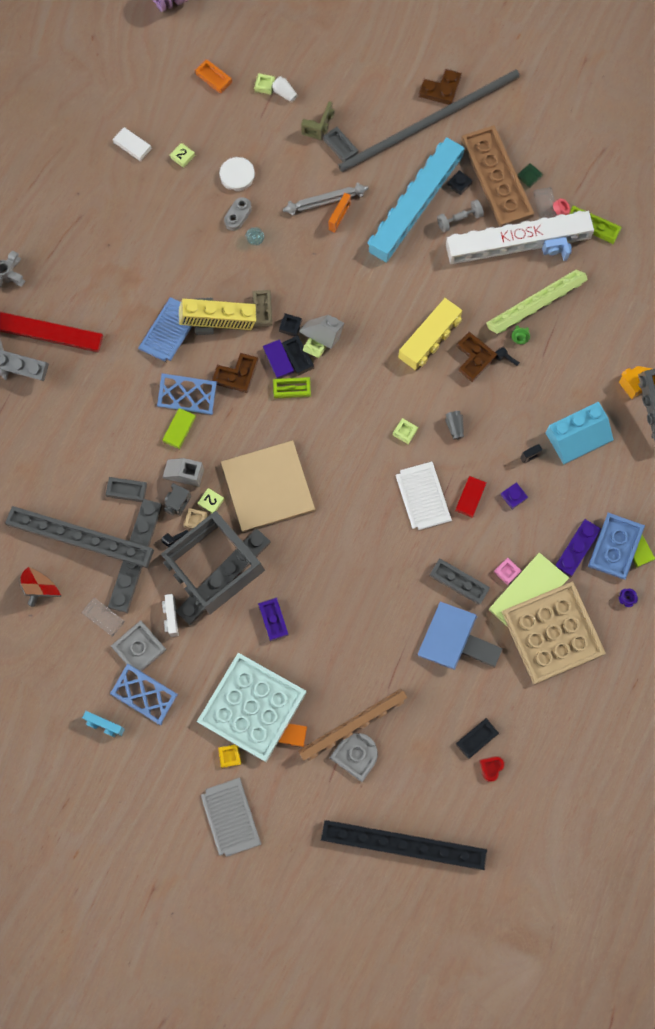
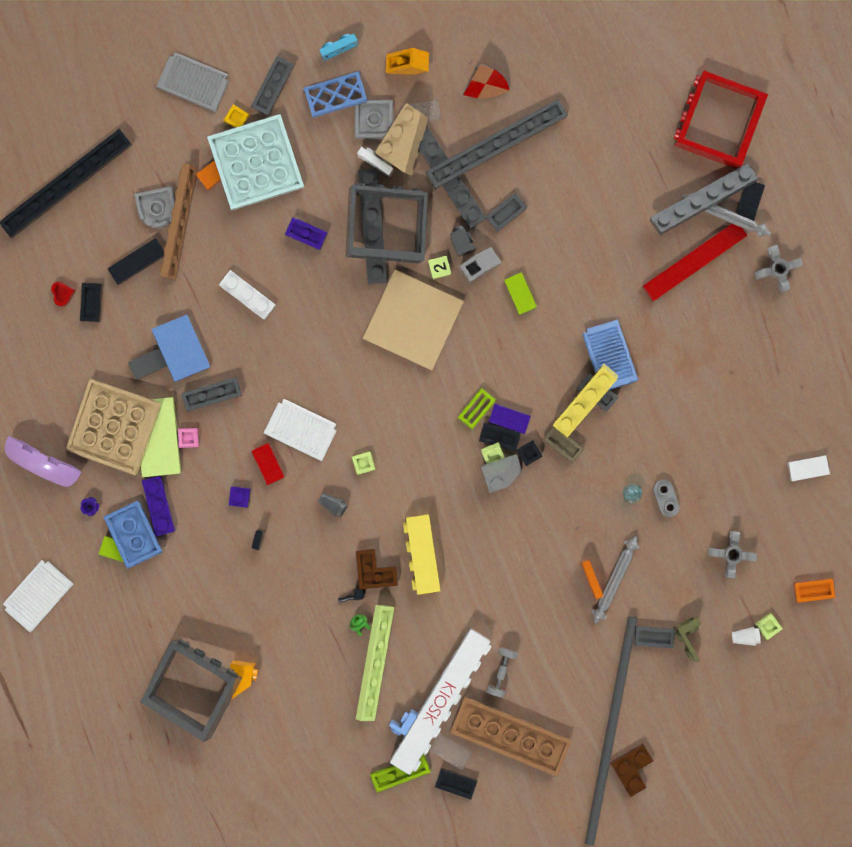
camera: 130 degrees right, 15 degrees up
(71, 660) = (407, 61): none -> light orange slope
(137, 605) = (403, 139): none -> tan wedge
(168, 540) = (436, 210): black hand -> none
(175, 405) = (543, 308): medium blue window -> none
(179, 748) = (272, 86): none -> dark grey plate
(182, 155) = (760, 500): yellowish green tile -> none
(194, 517) = (436, 244): tan tile -> none
(237, 135) = (730, 570): none -> light grey pin
(237, 174) = (703, 529): white tile -> none
(237, 378) = (520, 374): reddish brown plate -> none
(360, 623) = (247, 295): none -> white plate
(412, 731) = (136, 261): none -> black tile
(416, 199) = (548, 652): medium azure brick -> none
(460, 182) = (533, 701): black plate -> none
(530, 175) = (488, 764): clear green tile -> none
(561, 207) = (436, 760): coral tile -> none
(563, 184) = (456, 783): none -> black tile
(580, 433) = (240, 592): medium azure slope -> none
(638, 670) = (39, 464): none -> lavender brick

